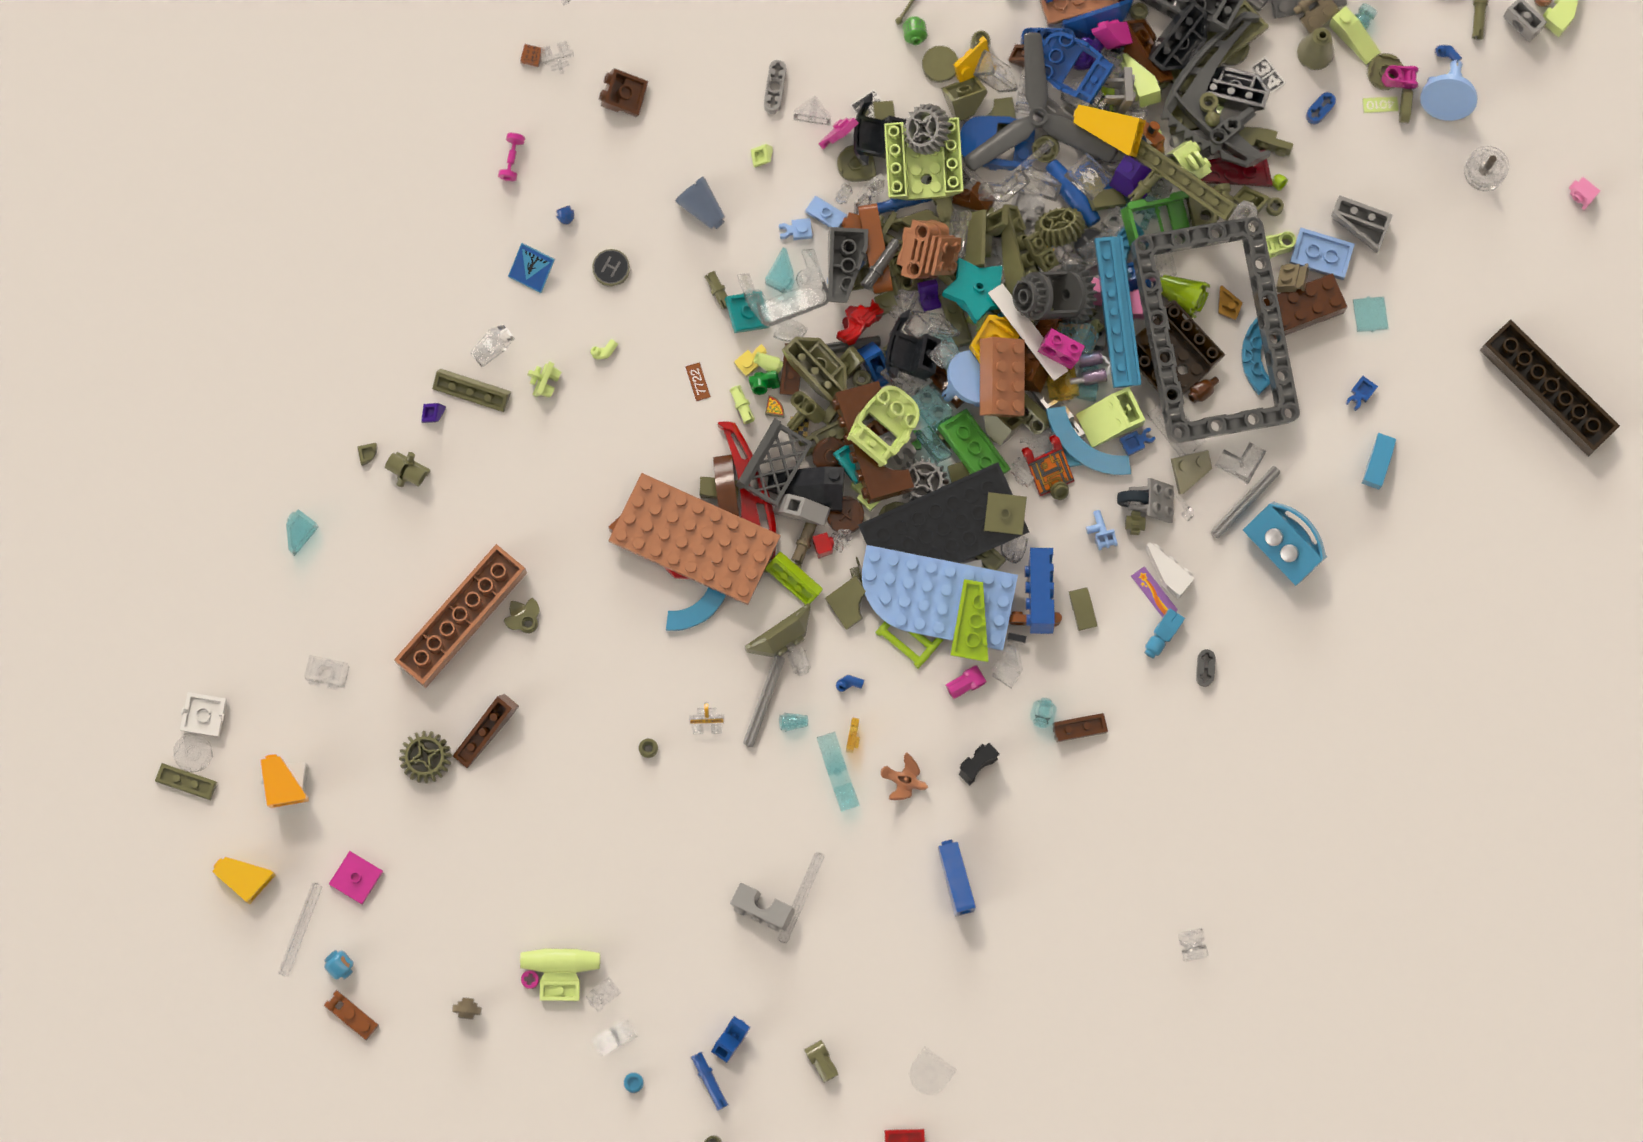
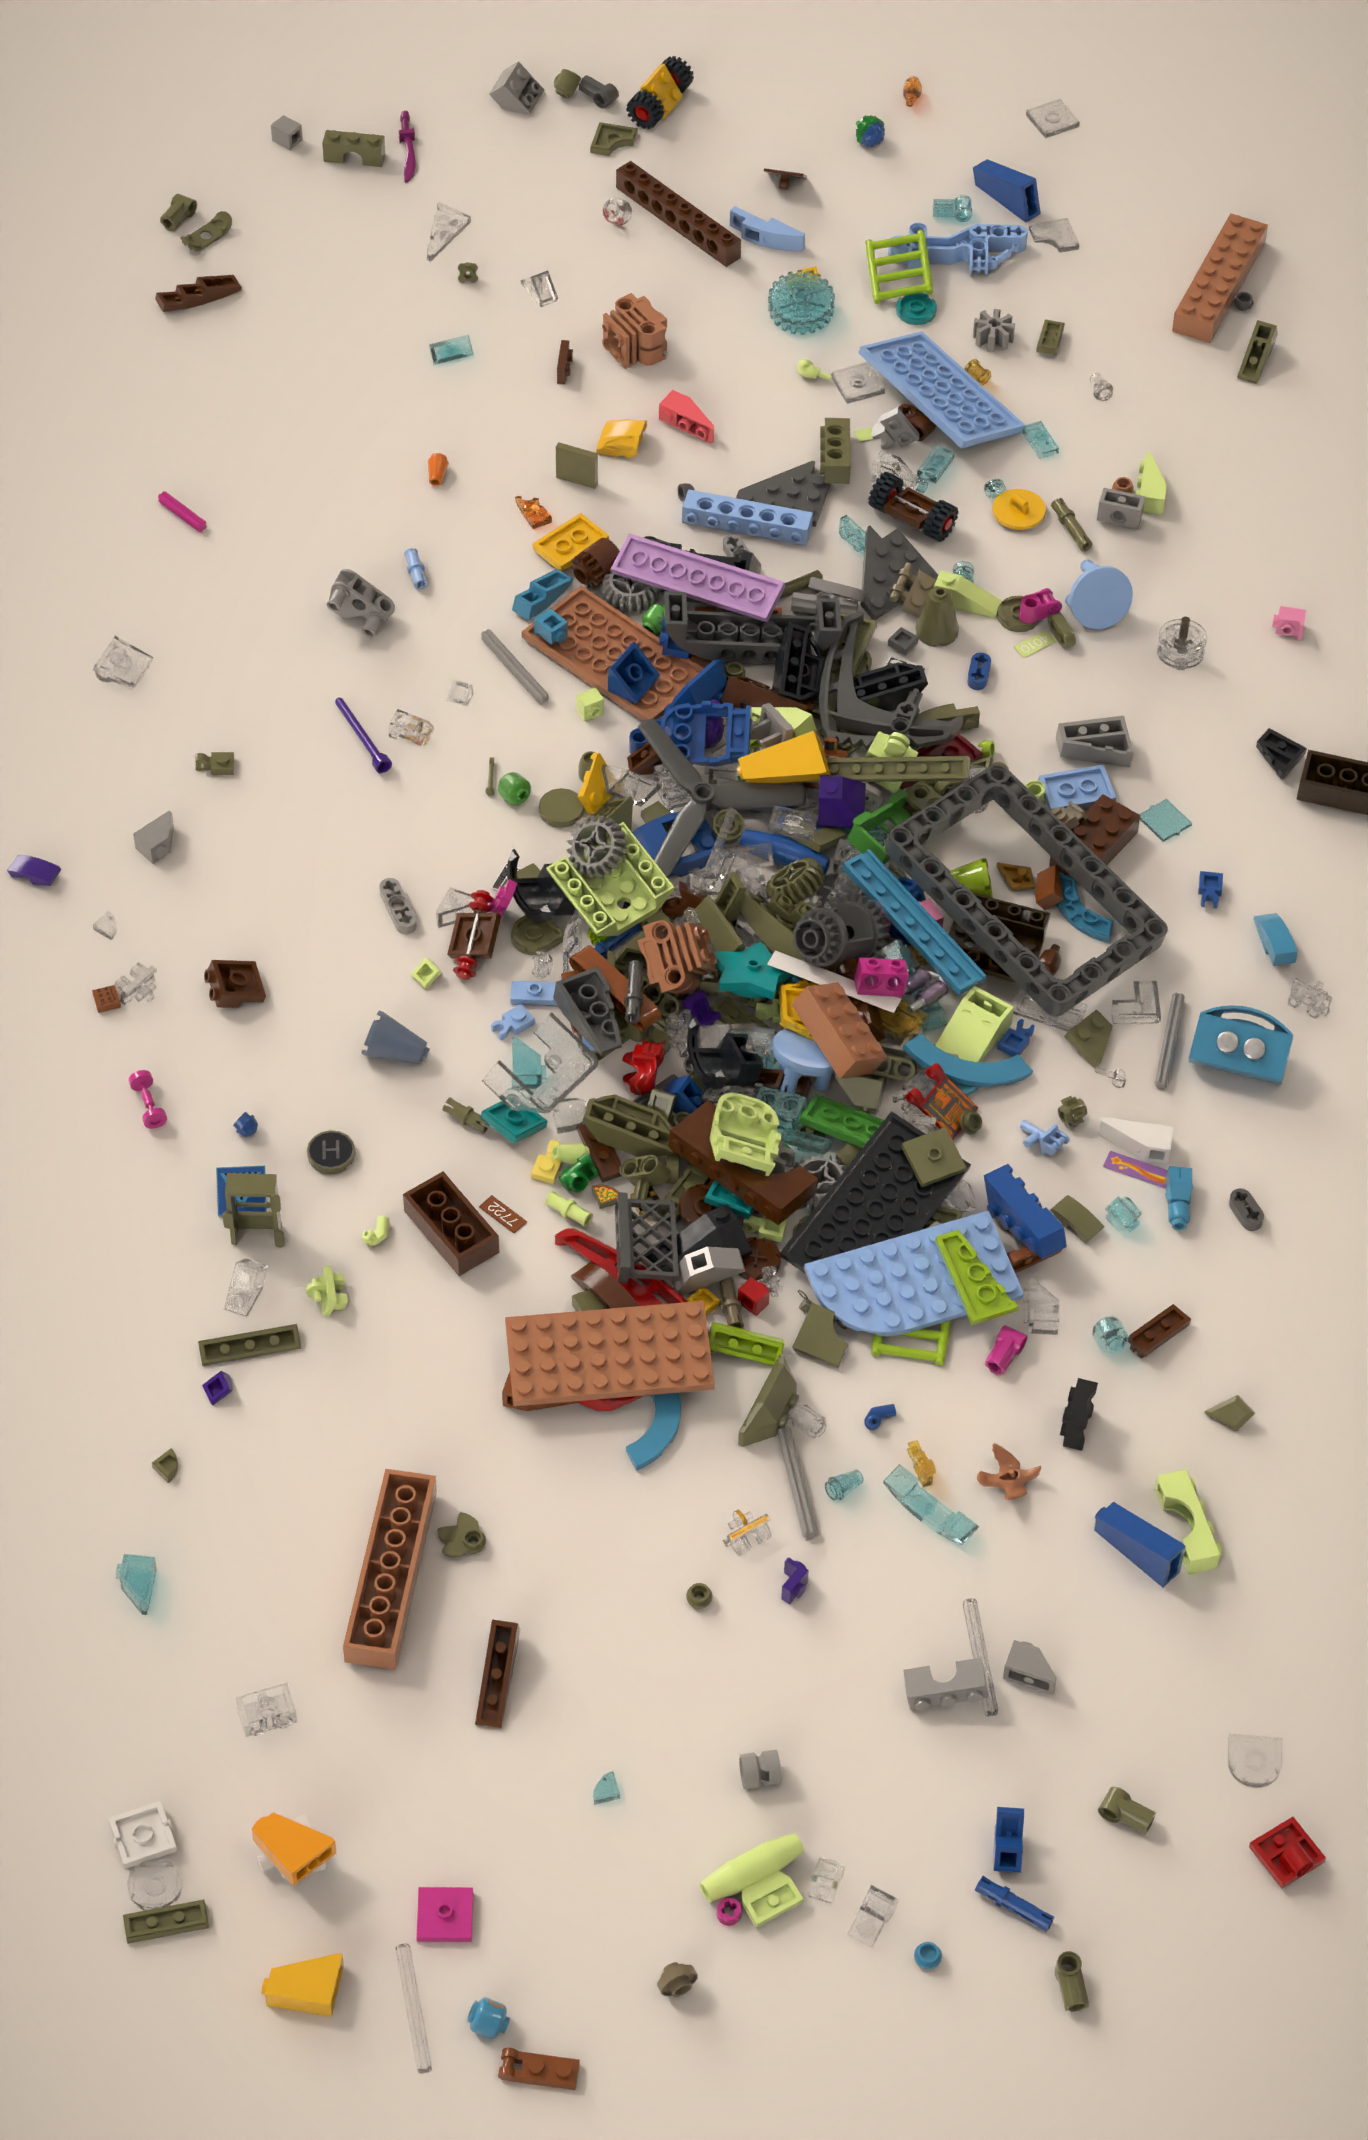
camera: 30 degrees left, 25 degrees down
(406, 469) = (226, 1453): olive pin -> none
(417, 759) = (444, 1724): olive gear -> none
(506, 850) = (606, 1789): none -> clear light blue tile
(515, 283) = (253, 1186): none -> olive piece
(608, 896) = (760, 1769): none -> light grey wheel
(653, 374) = (451, 1223): none -> reddish brown brick
(712, 779) = (797, 1580): none -> dark purple bracket
(788, 528) = (711, 1302): none -> yellow tile
(808, 145) = (474, 935): none -> reddish brown plate
(825, 923) = (1029, 1668): none -> light grey slope
(1007, 857) = (1178, 1494): none -> yellowish green arch
(1020, 639) = (1024, 1279): black piece -> none
(1086, 818) = (1231, 1412): none -> olive piece
(1113, 34) = (726, 689): dark pink slope -> none
(1115, 625) = (1123, 1214): none -> clear light blue head
(1145, 186) = (859, 796): olive pin -> none
(1154, 498) = (1062, 1084): light grey plate -> none
(1212, 118) = (881, 713): olive plate -> none
(1243, 327) = (1048, 887): none -> dark orange slope
(1281, 50) = (902, 641): none -> dark grey plate
(1372, 526) = (1311, 996): none -> clear hips
(1447, 51) = (1065, 570): blue arm -> none
(1495, 303) = (1280, 752): none -> black wing

